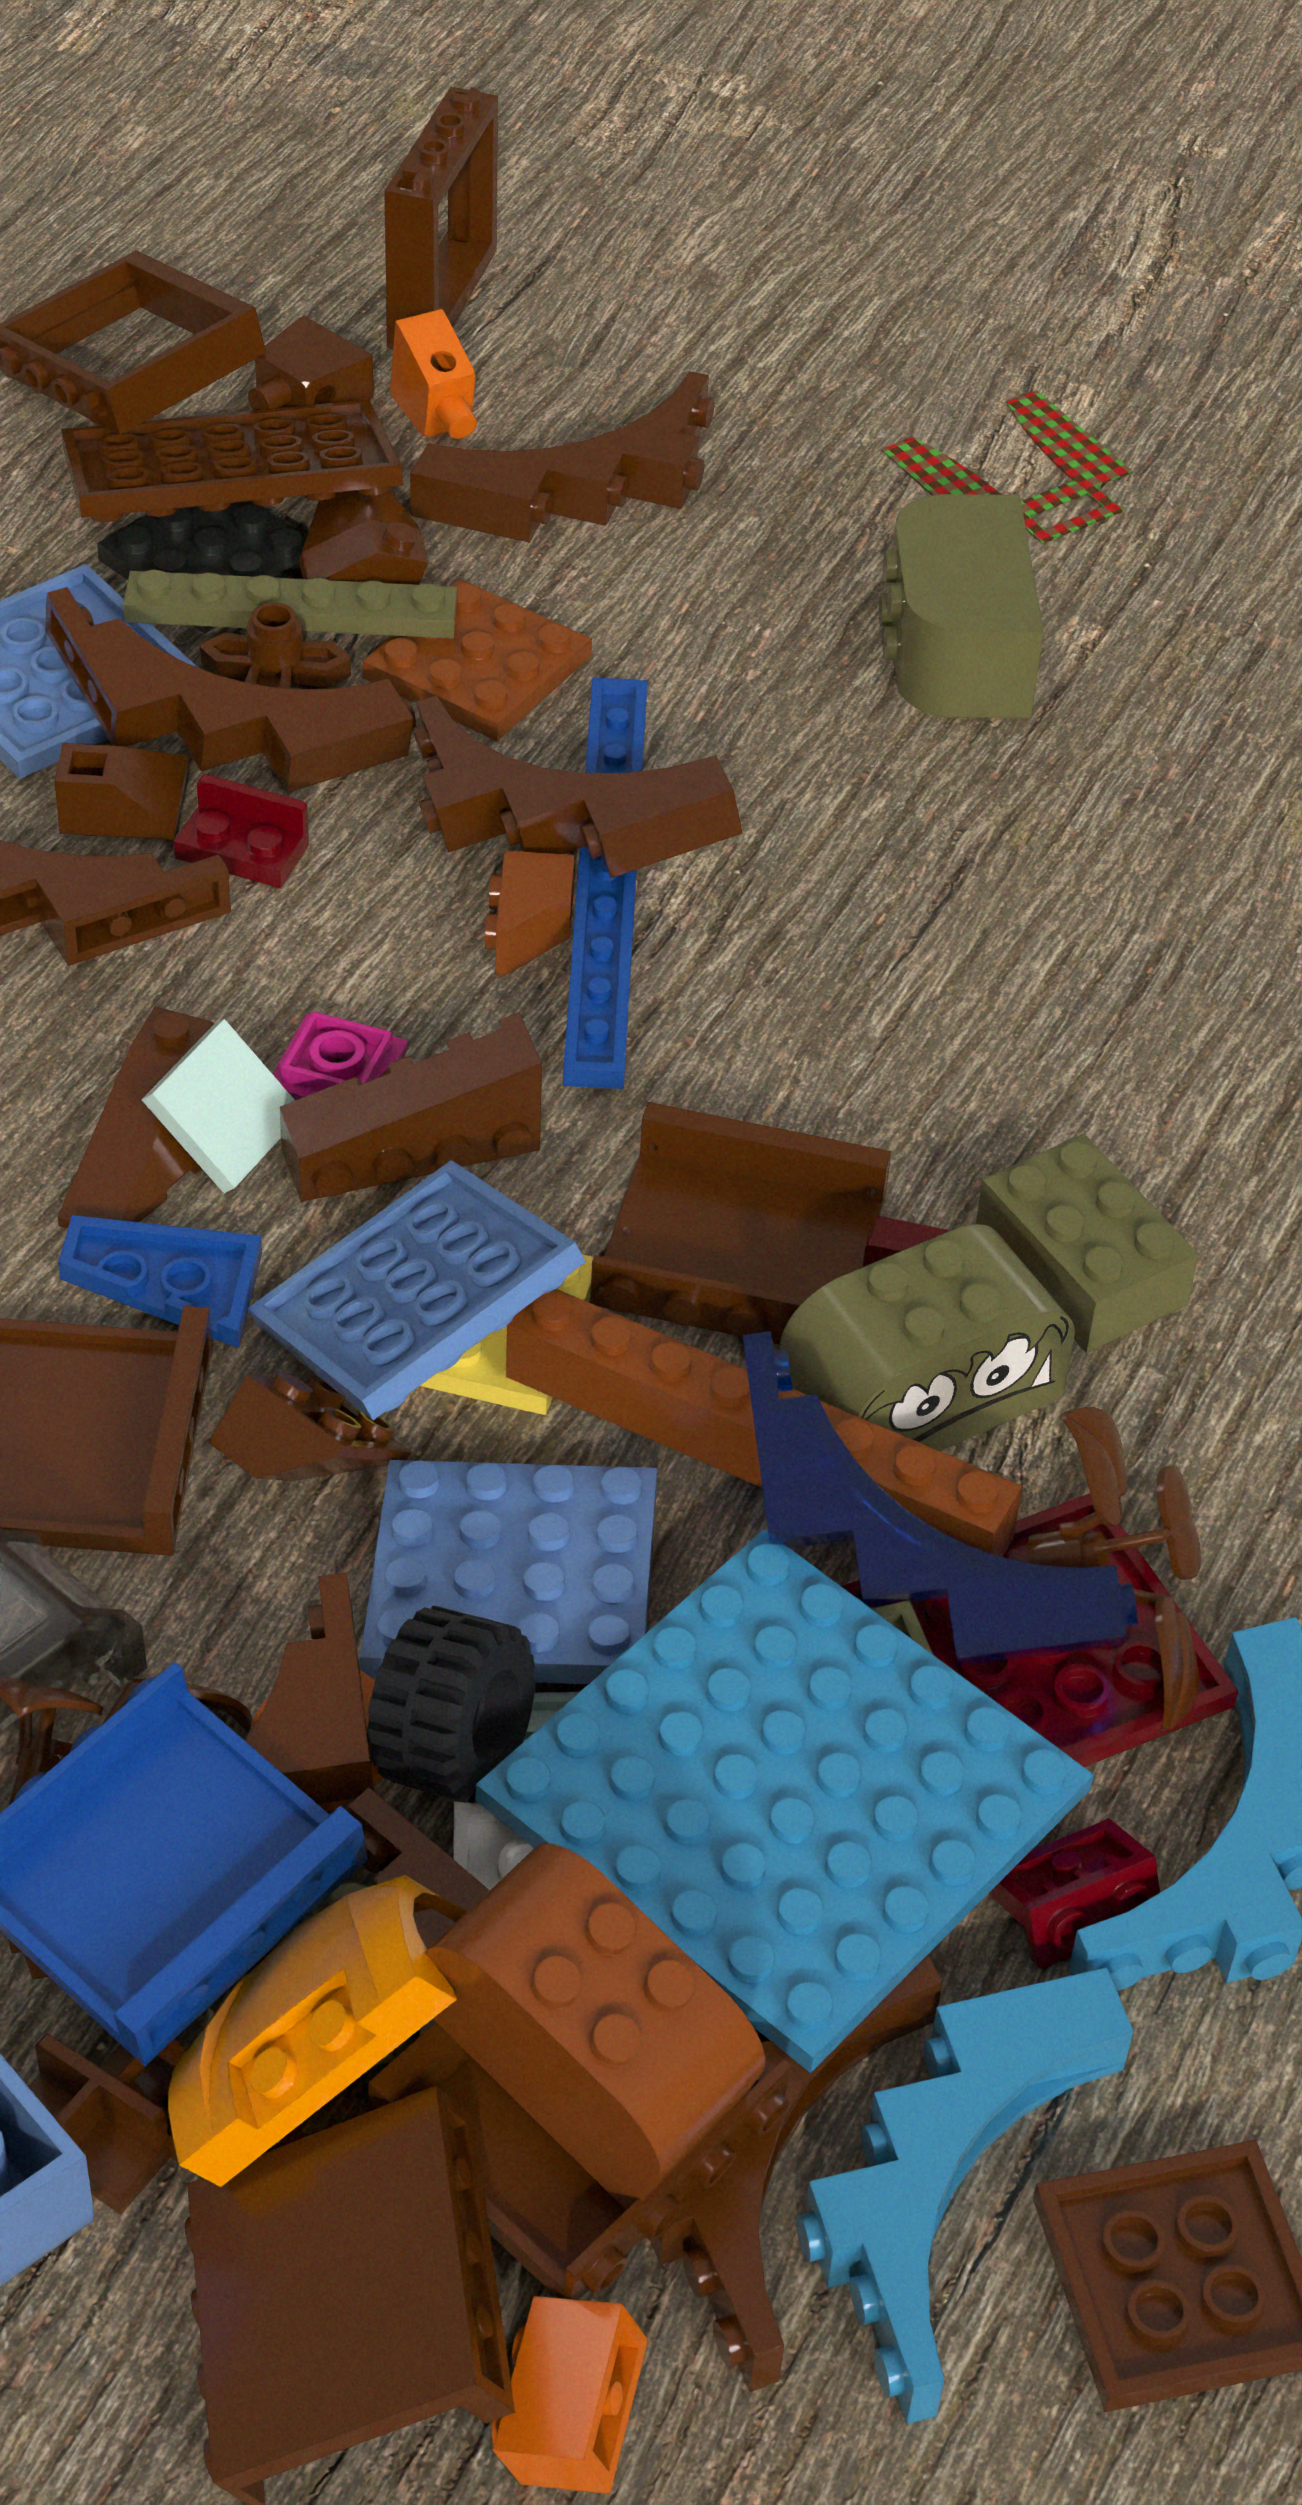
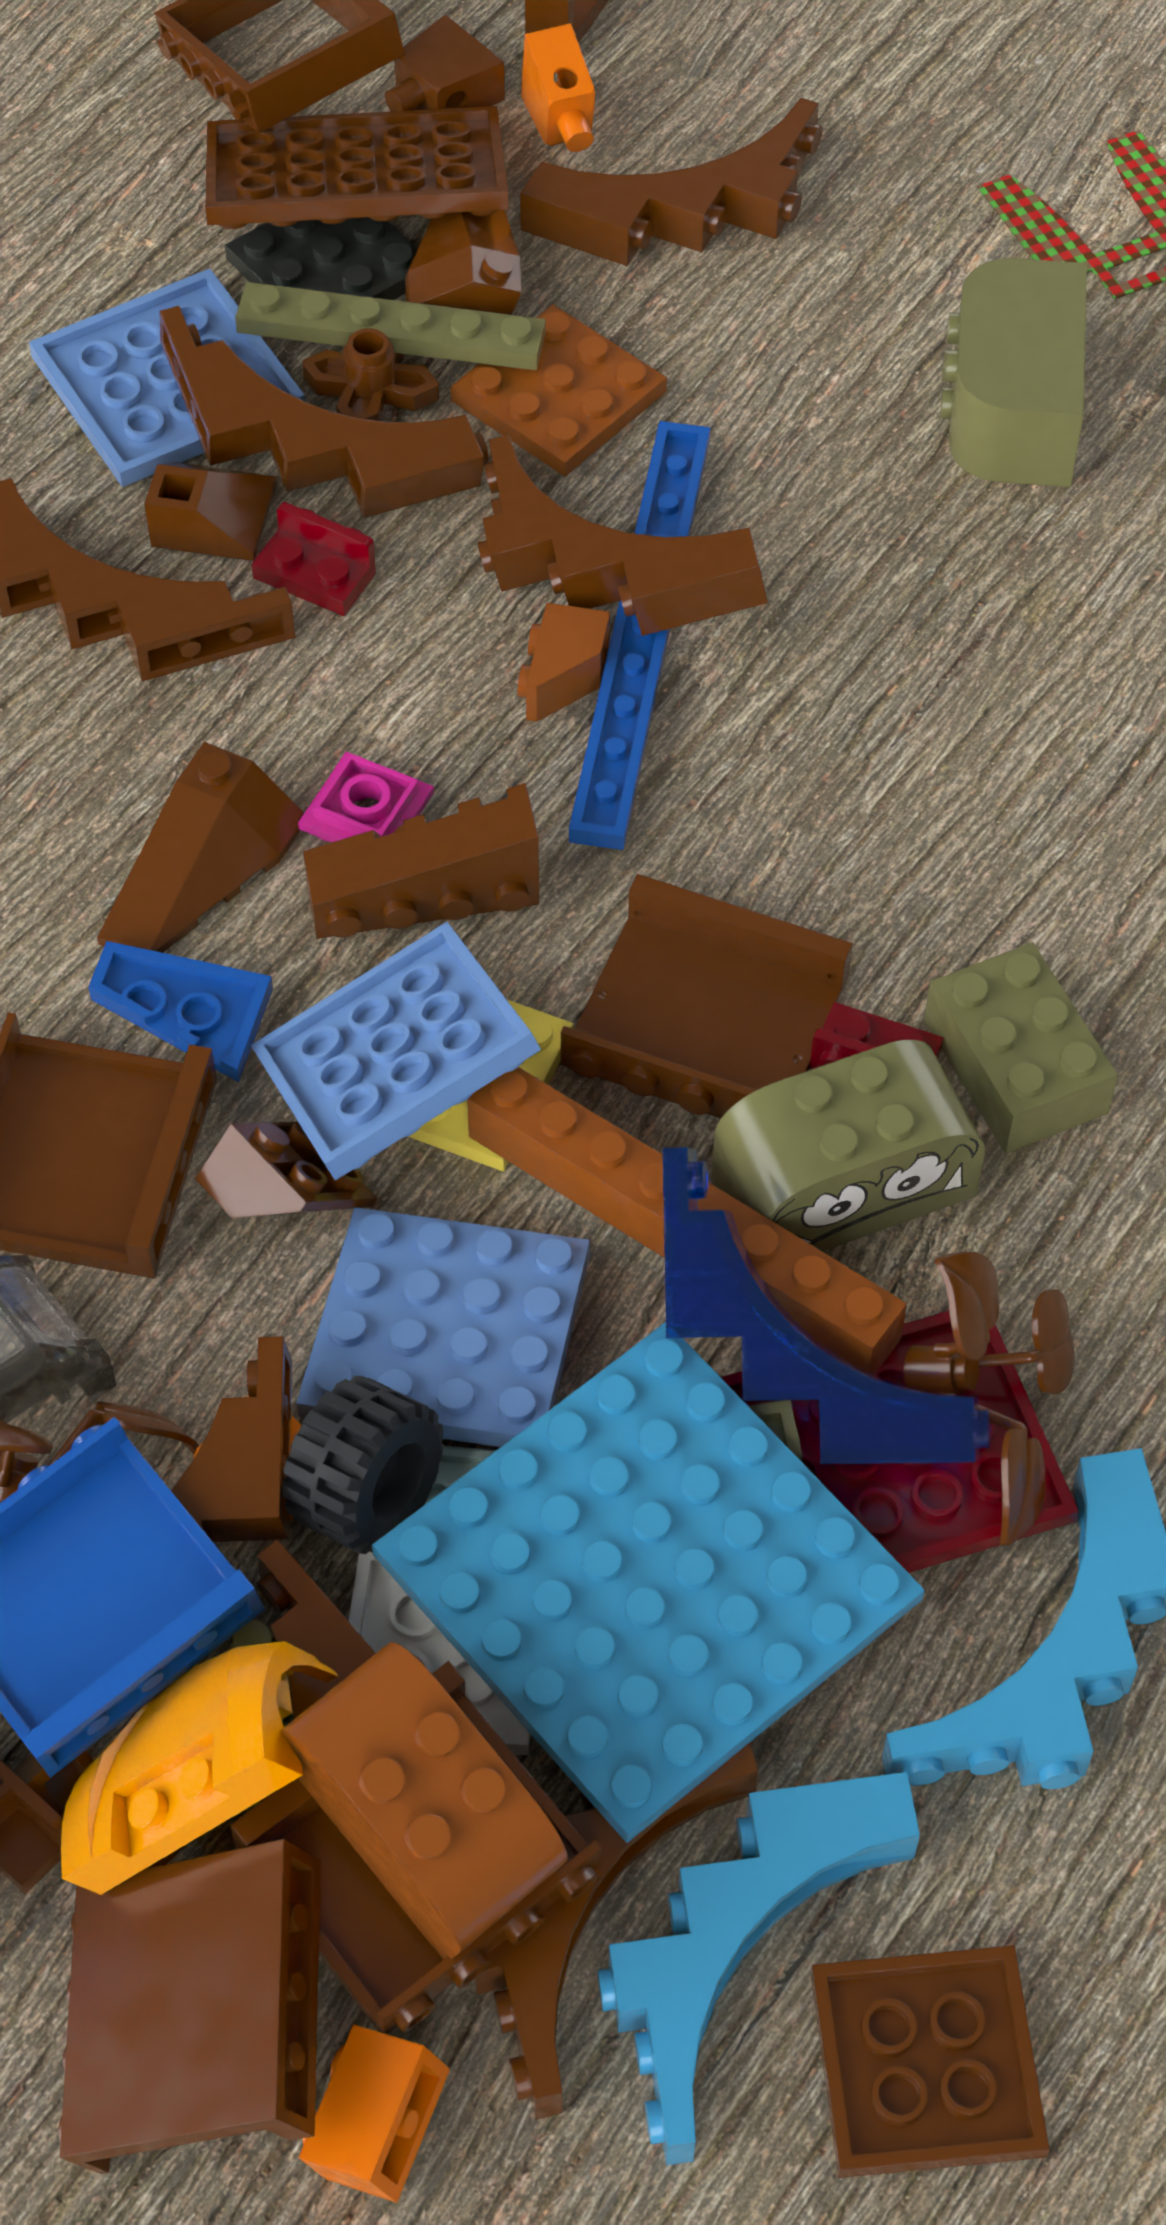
camera: 10 degrees right, 10 degrees up
(221, 1105) = (252, 843): light aqua tile -> none
(1075, 1886) = (900, 1685): dark red bracket -> none

